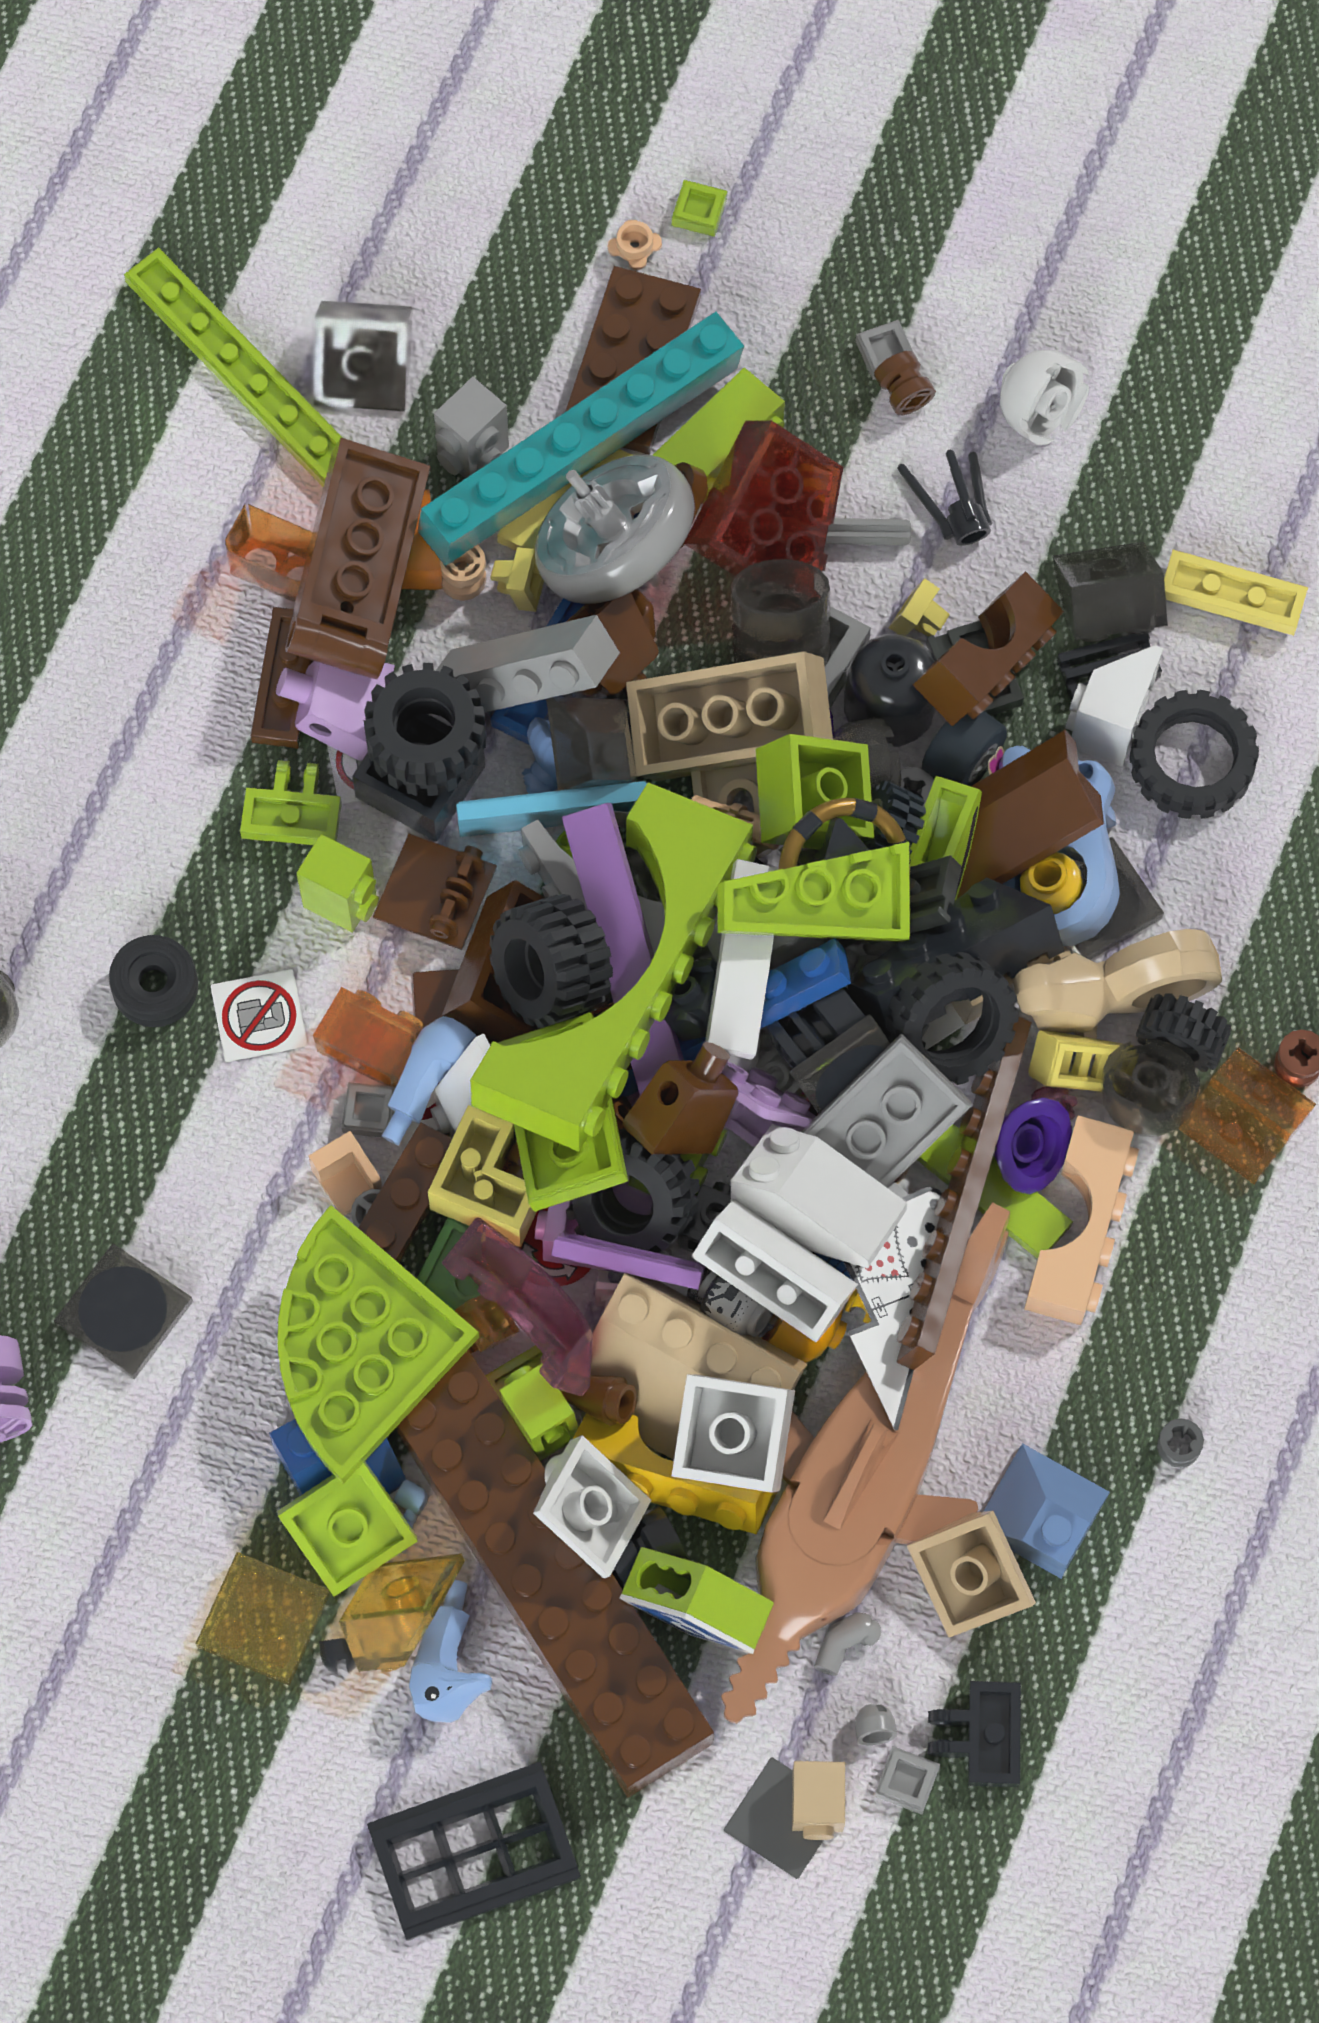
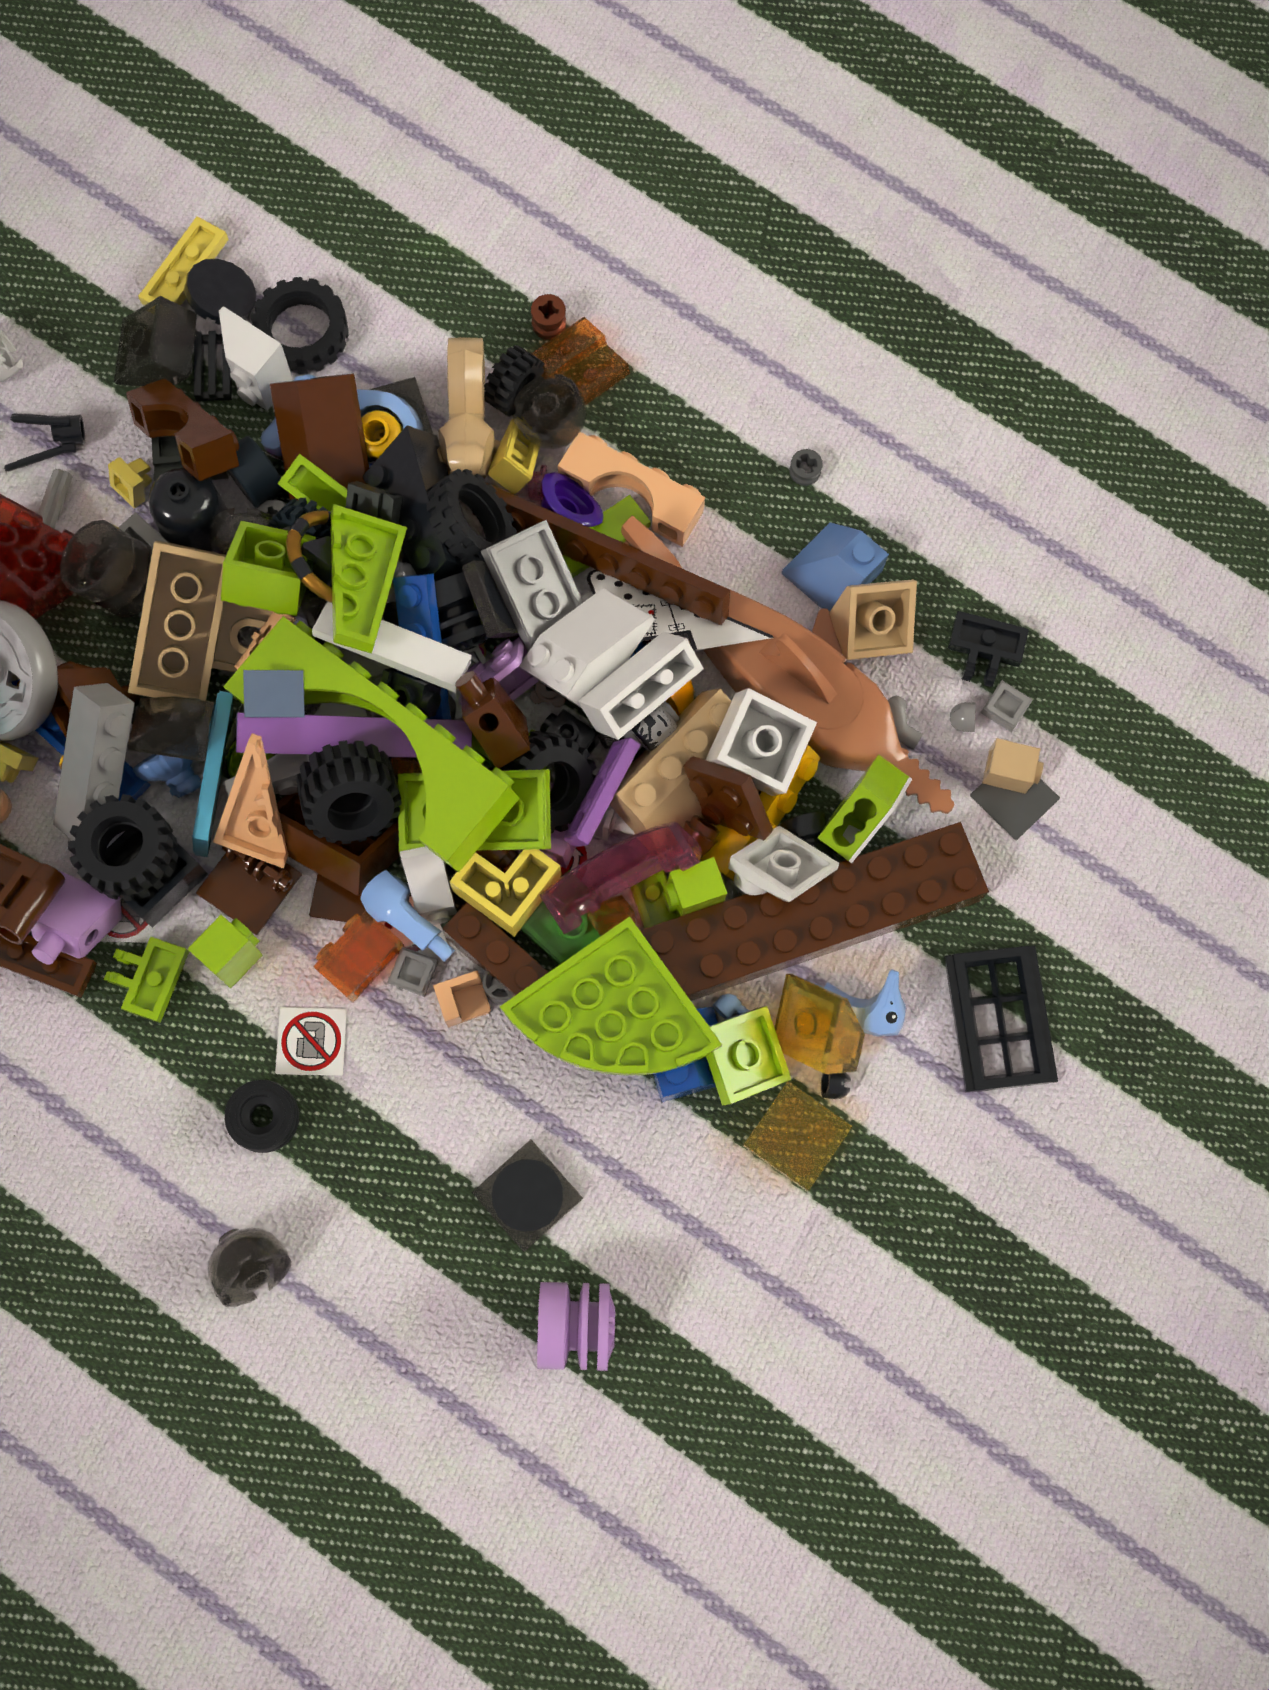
camera: 80 degrees left, 5 degrees up
(504, 859) = (251, 812): none -> light nougat wing
(643, 837) = (273, 693): none -> sand blue sticker
(653, 1413) = (728, 798): none -> reddish brown plate
(1208, 644) = (219, 284): none -> black tile

